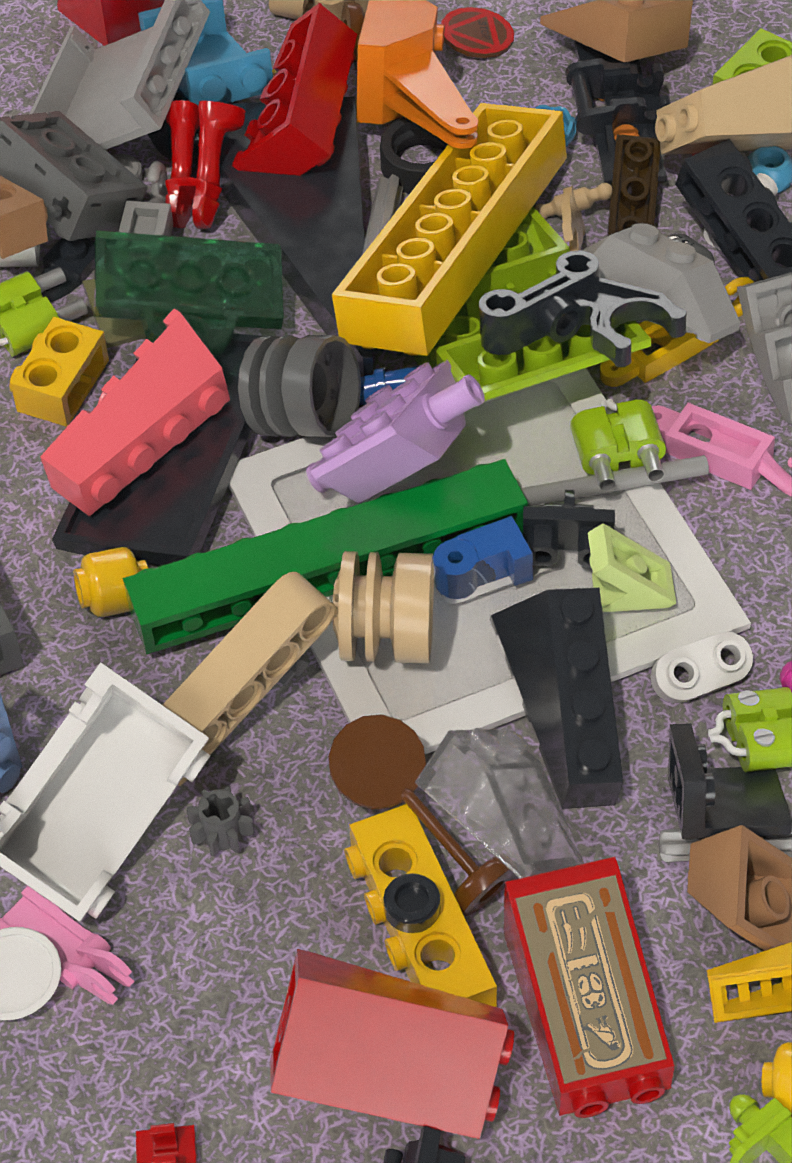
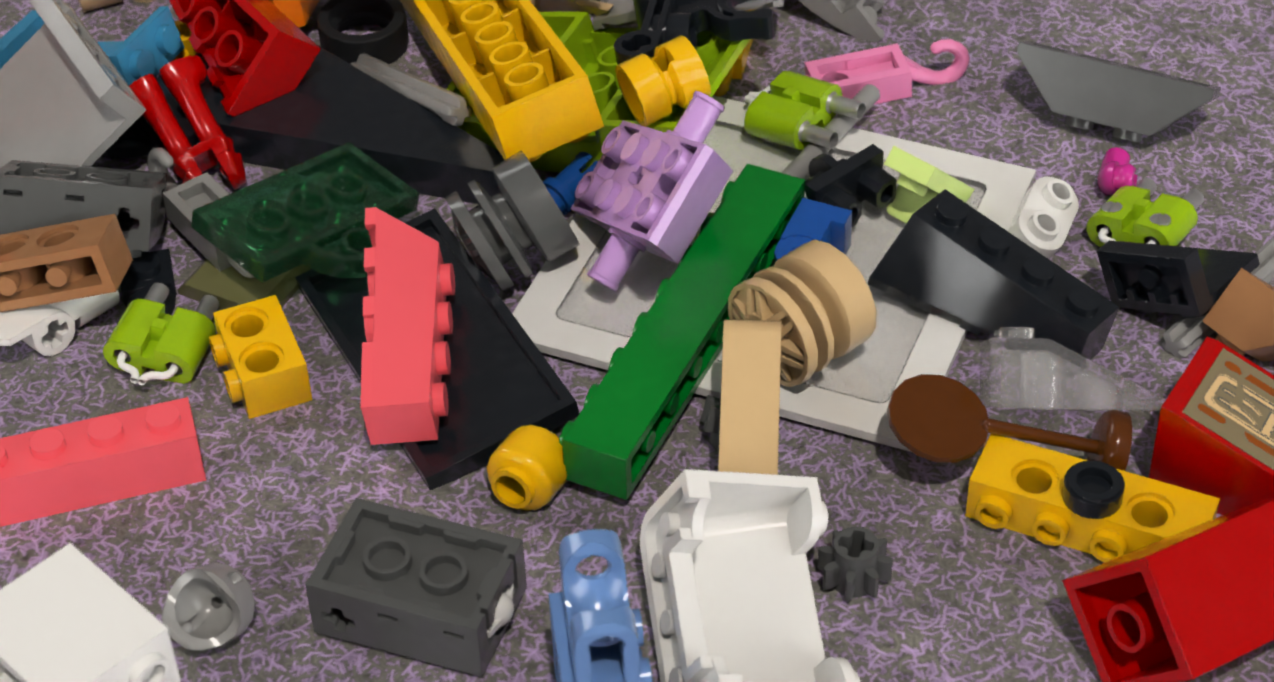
camera: 45 degrees left, 10 degrees down
(479, 347) = (659, 82): none -> yellow wheel

